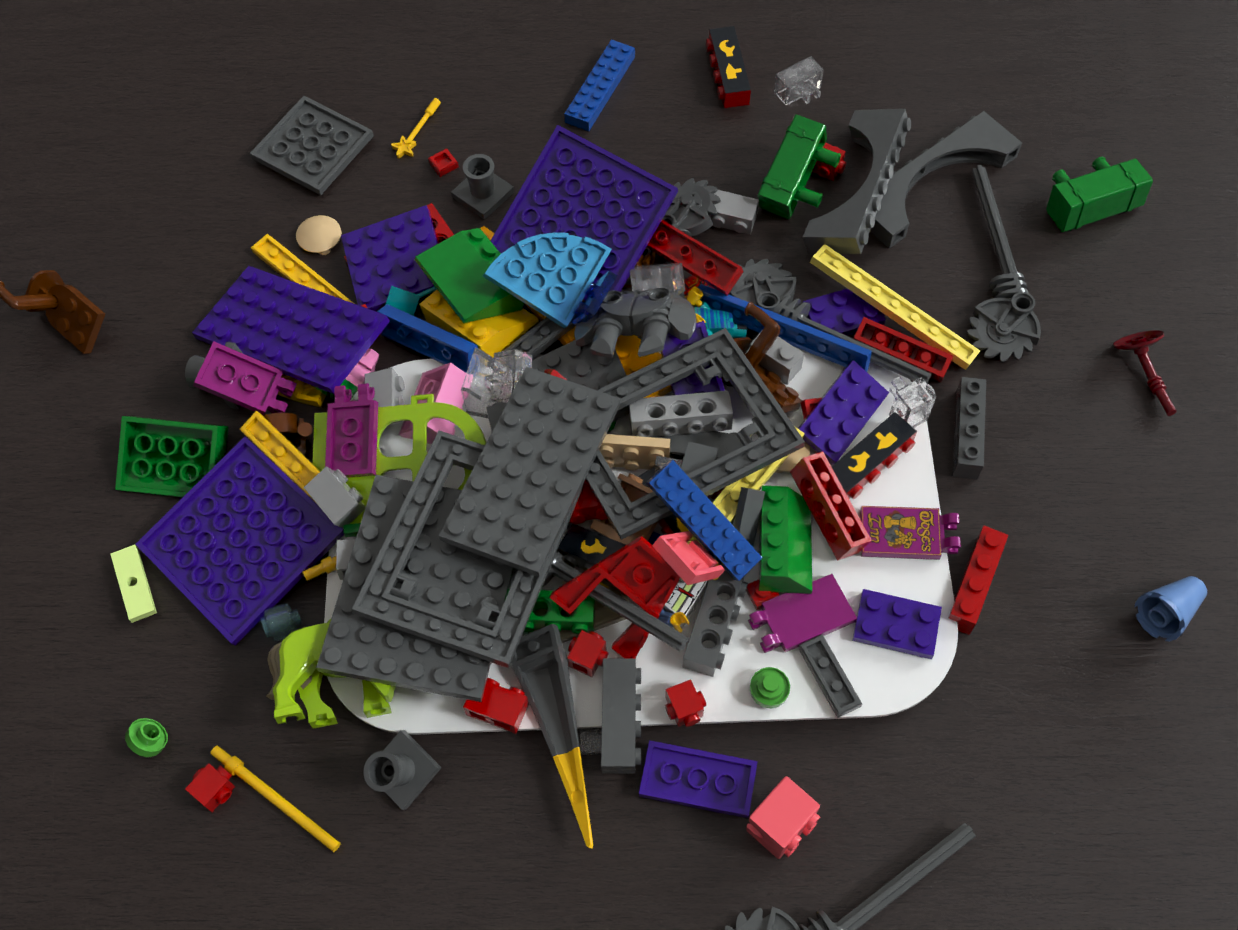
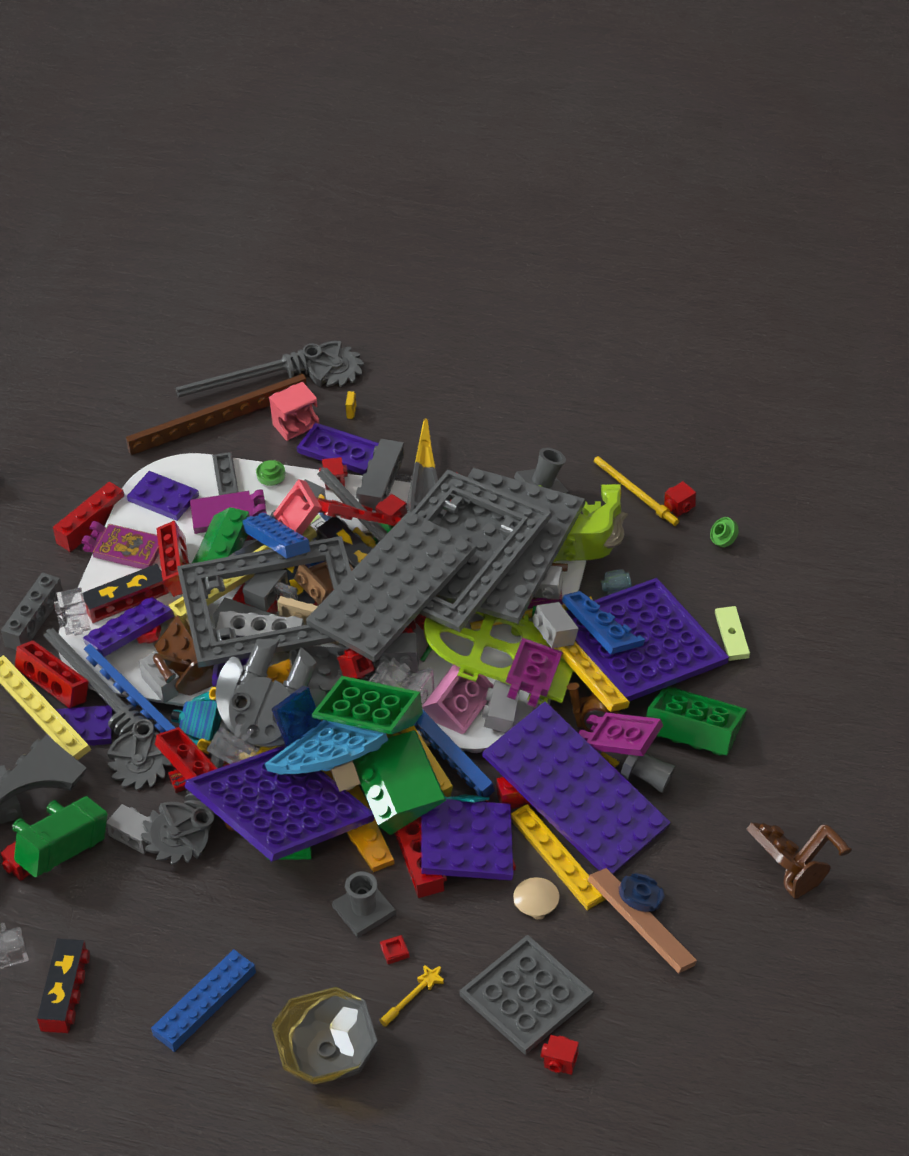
camera: 165 degrees left, 15 degrees down
(213, 229) = (644, 923): none -> nougat tile
(214, 252) = (641, 892): none -> dark blue tile
(272, 100) = (560, 1054): none -> red brick
(280, 522) = (601, 624): none -> blue wing
(475, 49) = (324, 1035): none -> dark grey rock
(516, 313) = (370, 706): none -> green slope
(710, 866) = (351, 405): none -> yellow tile
(883, 810) = (207, 417): none -> reddish brown plate

